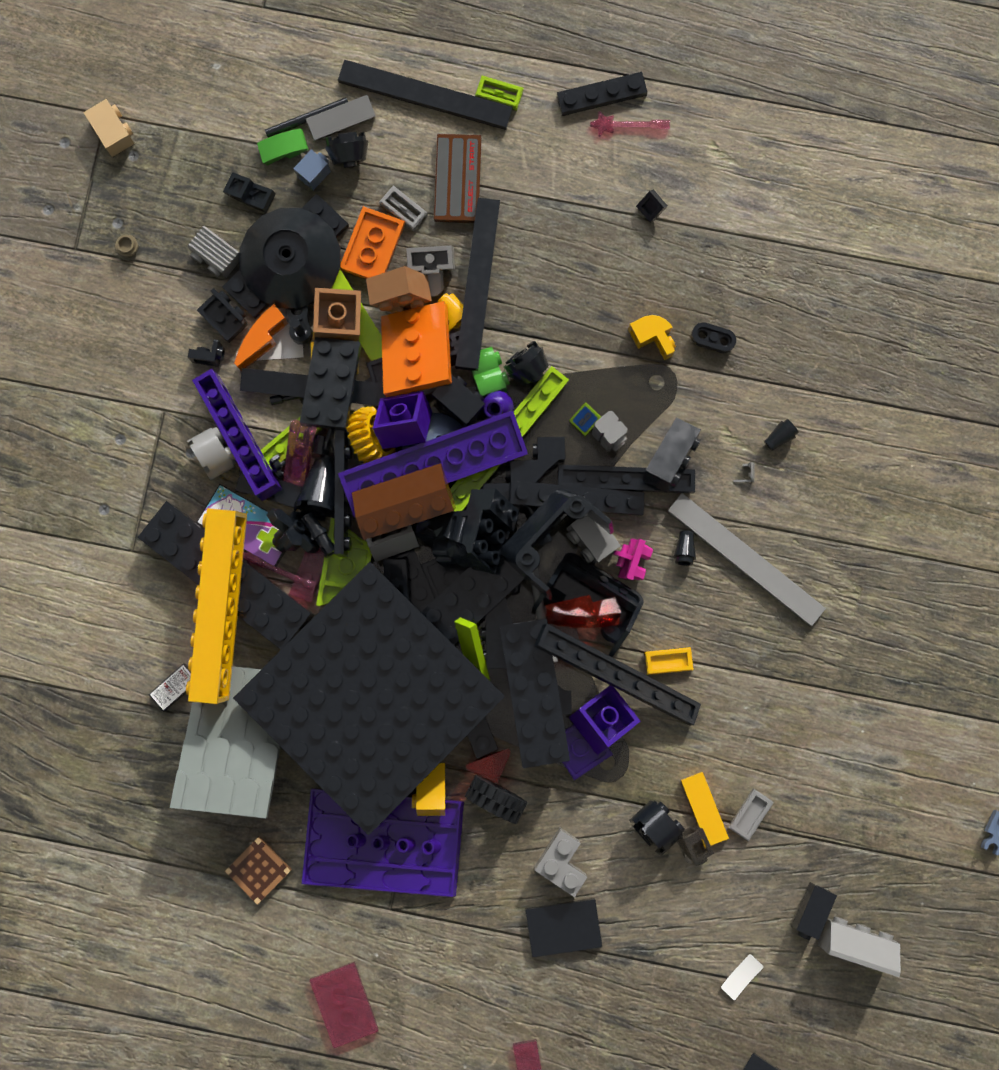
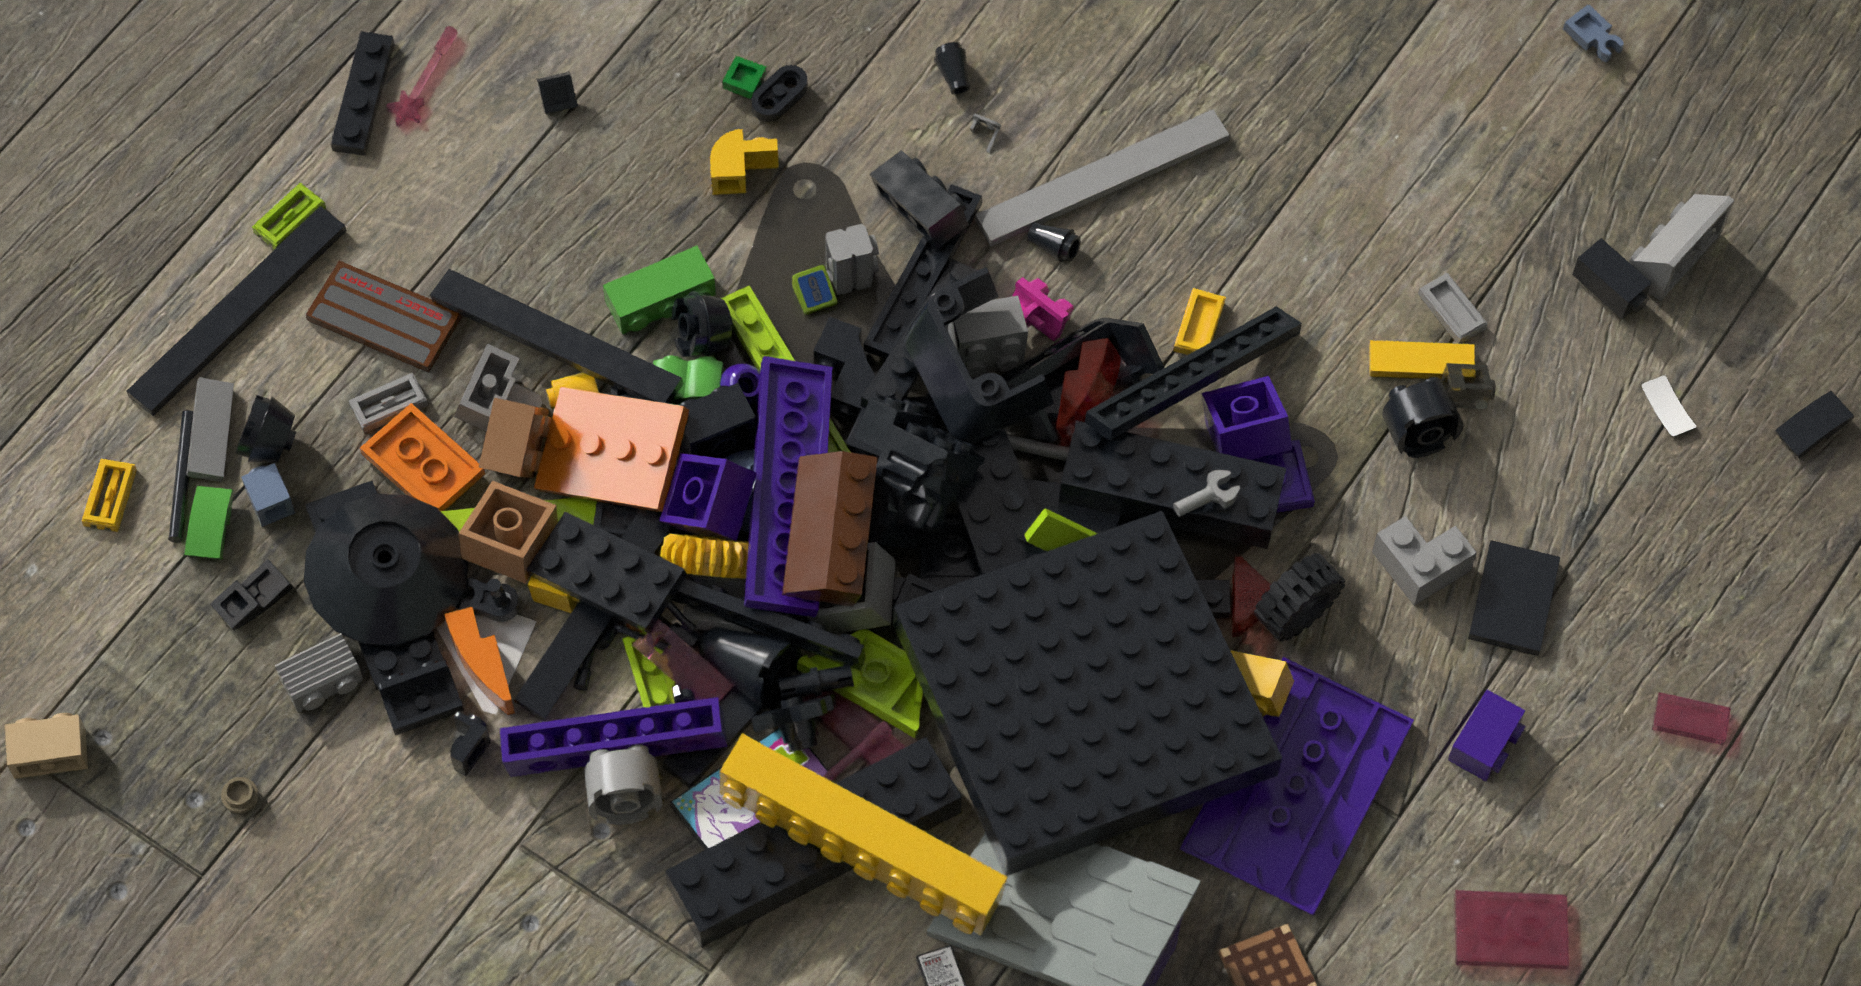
camera: 70 degrees left, 20 degrees down
(265, 92) = (103, 521): none -> yellow tile
(460, 946) = (1487, 735): none -> dark purple brick
(525, 720) = (1209, 494): none -> light grey bar
(543, 328) = (653, 289): none -> bright green brick
(715, 311) = (744, 77): none -> green plate

